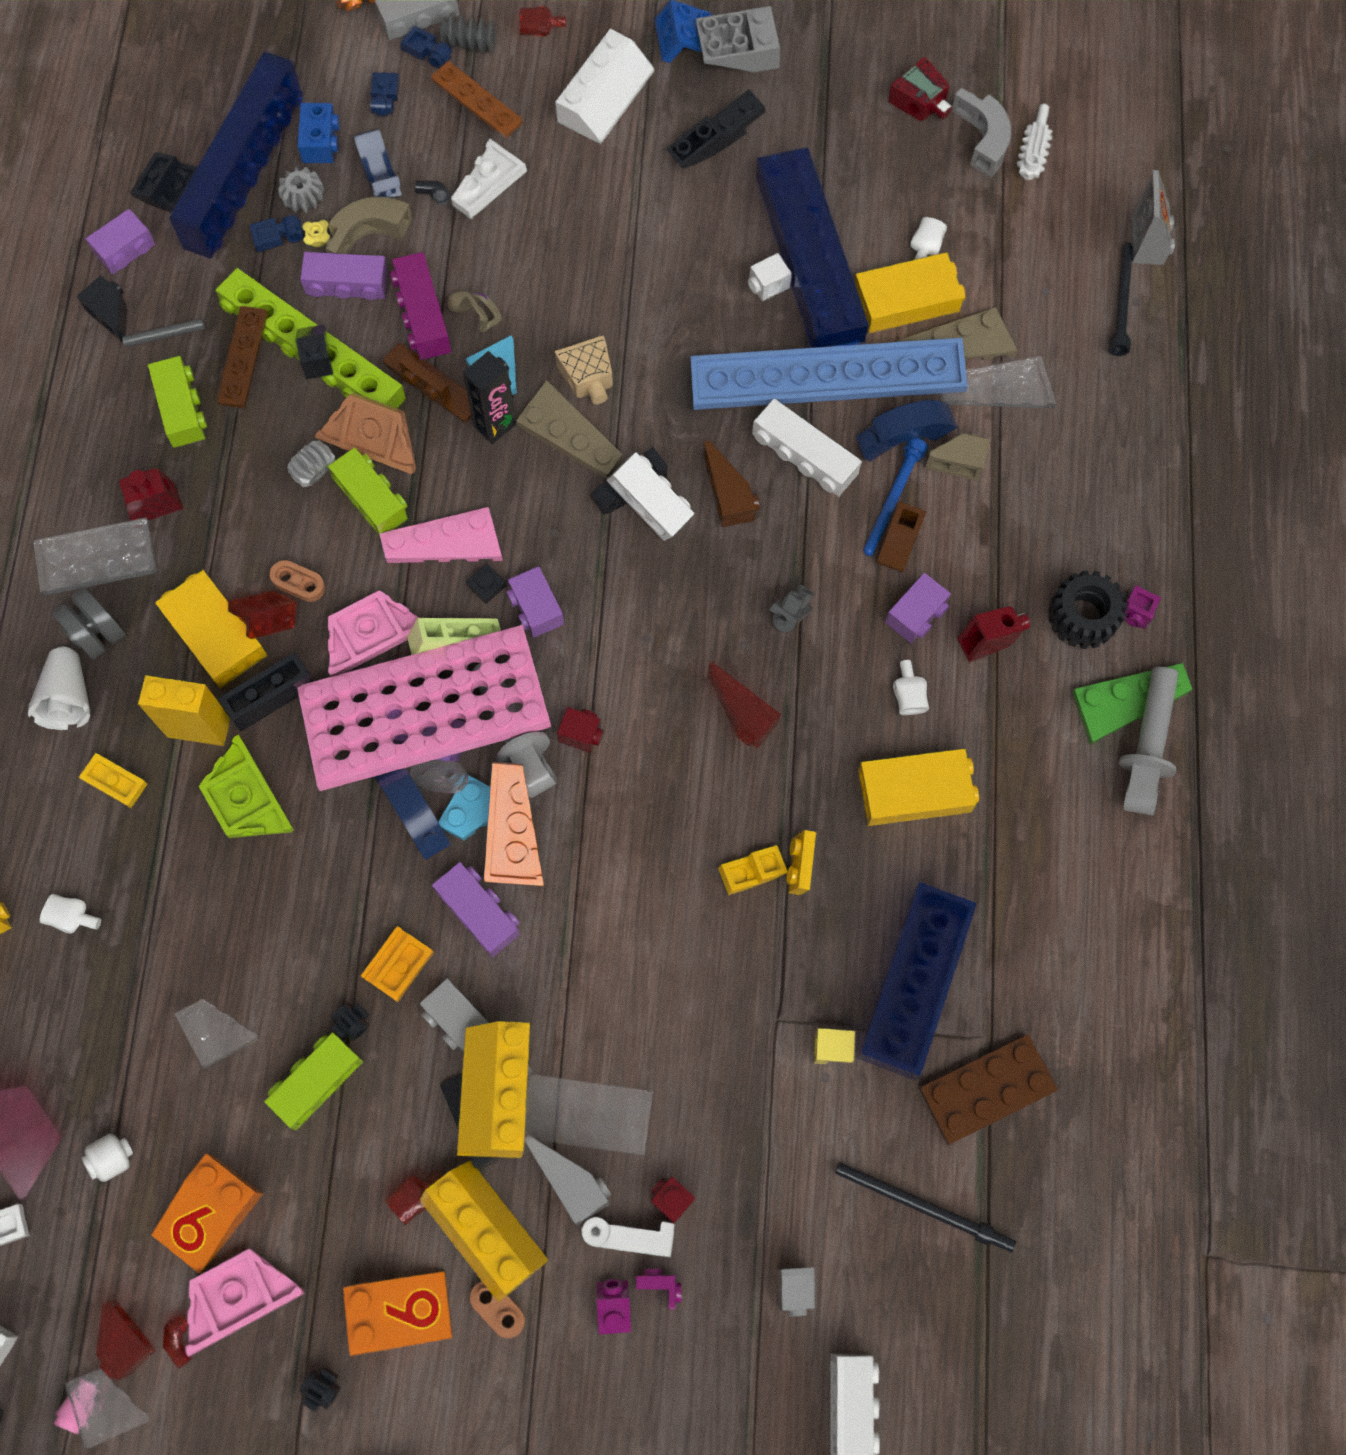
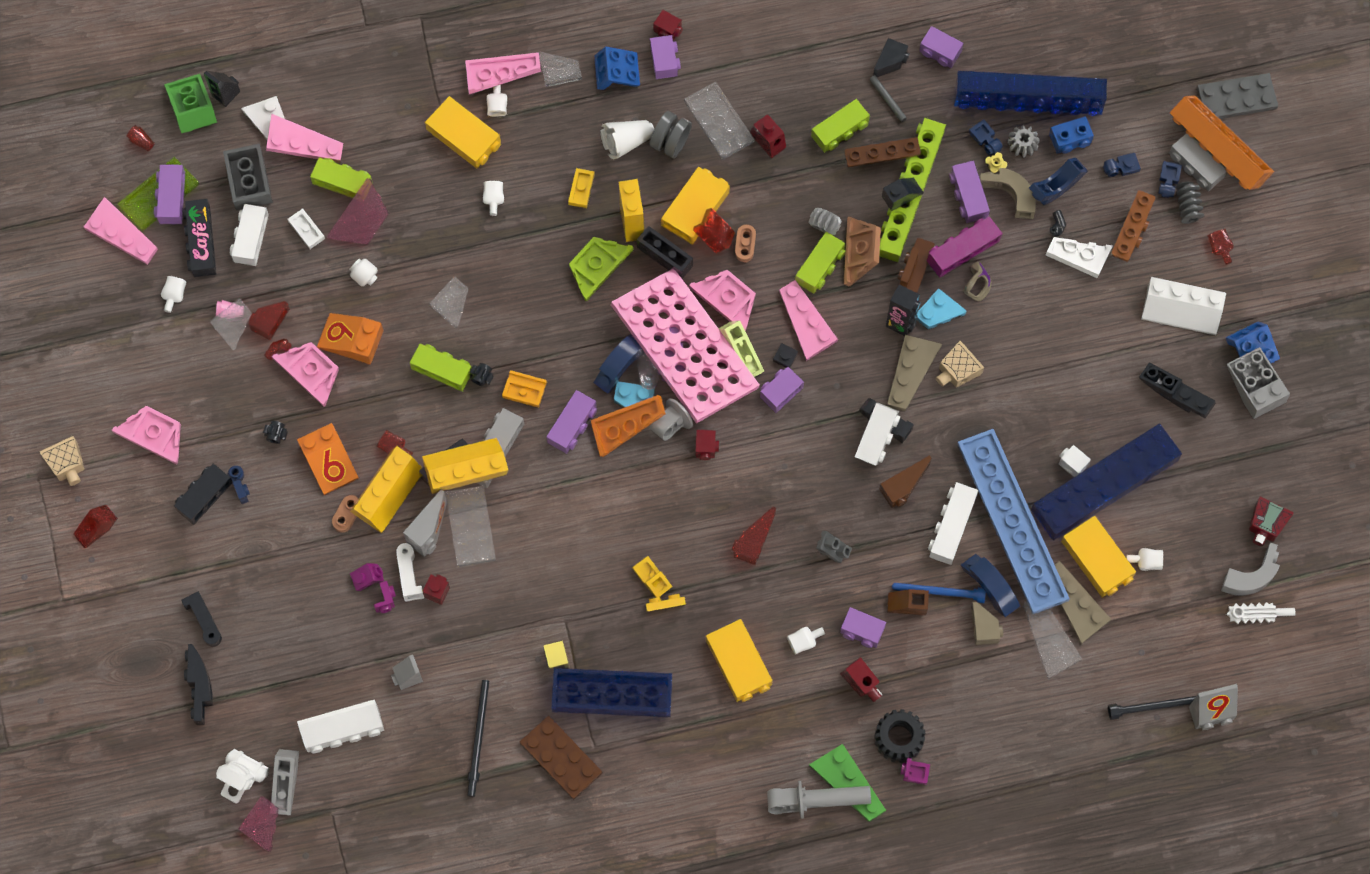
camera: 75 degrees right, 0 degrees up
(163, 181) = (997, 56): black slope -> none

